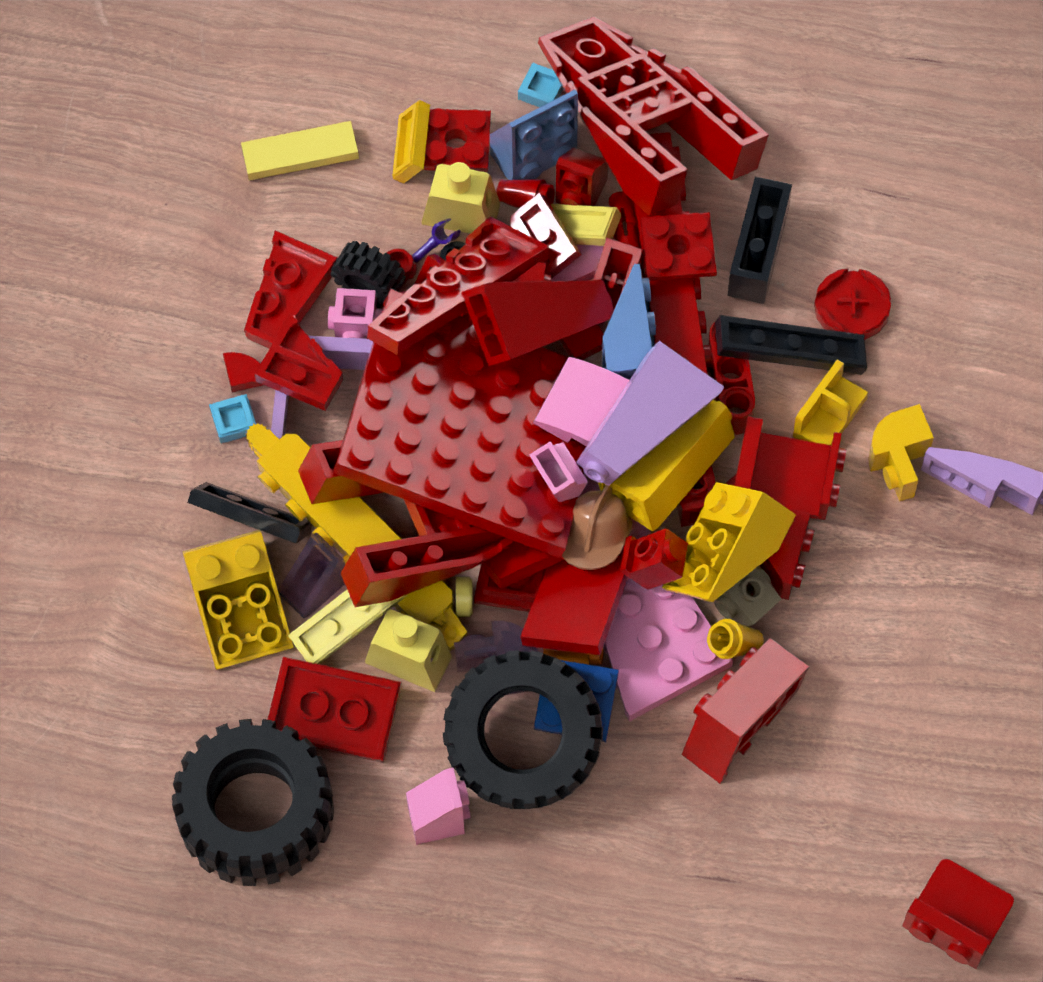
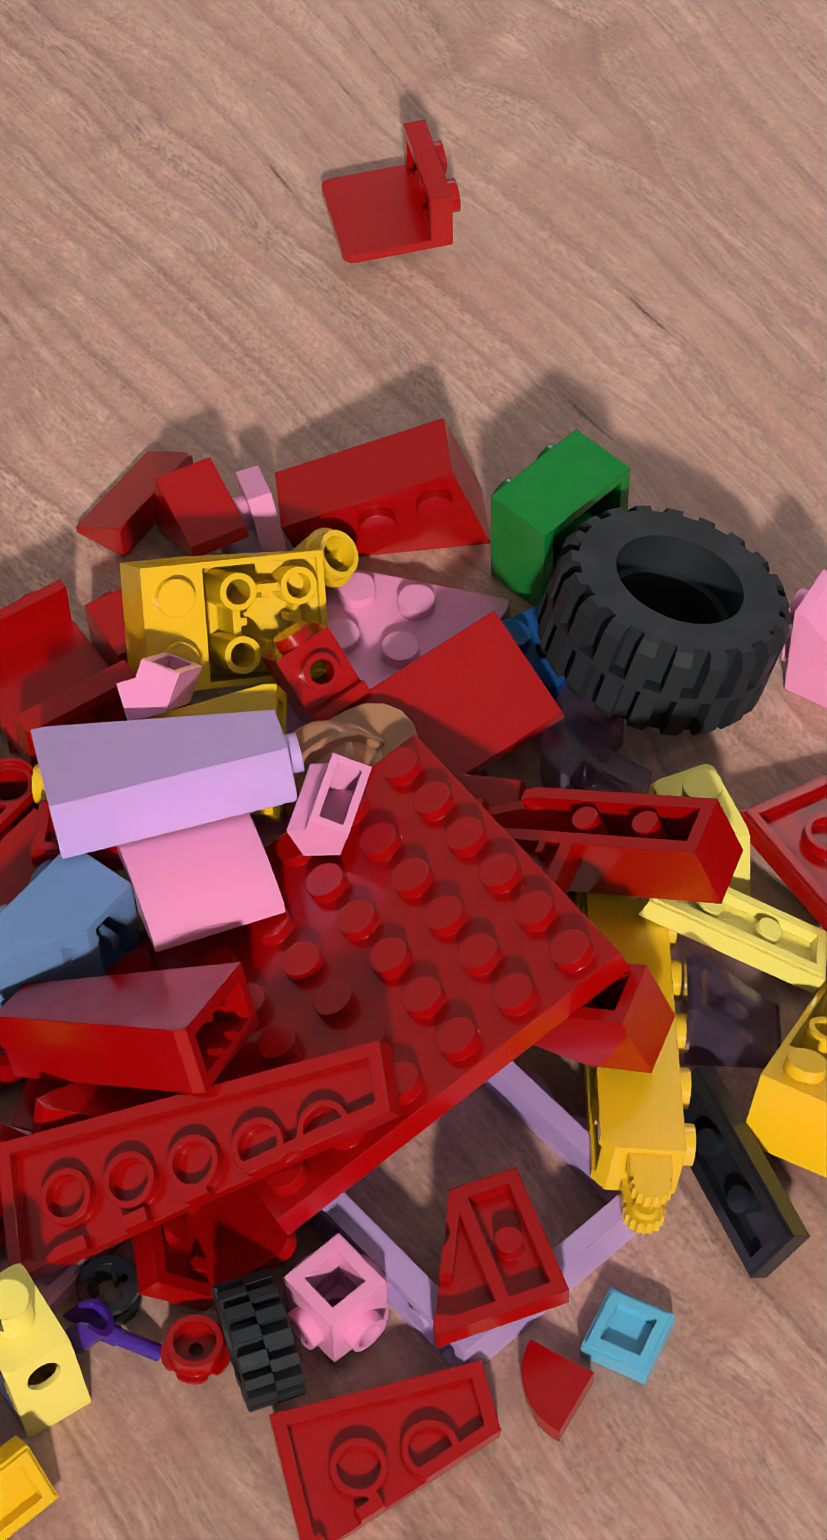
camera: 135 degrees left, 10 degrees down
(642, 759) = (544, 507): none -> green brick
(702, 466) = (159, 686): none -> bright pink piece
(791, 635) = (259, 515): none -> bright pink bracket
(817, 610) = (197, 509): none -> red slope
(873, 616) = (129, 506): none -> red slope

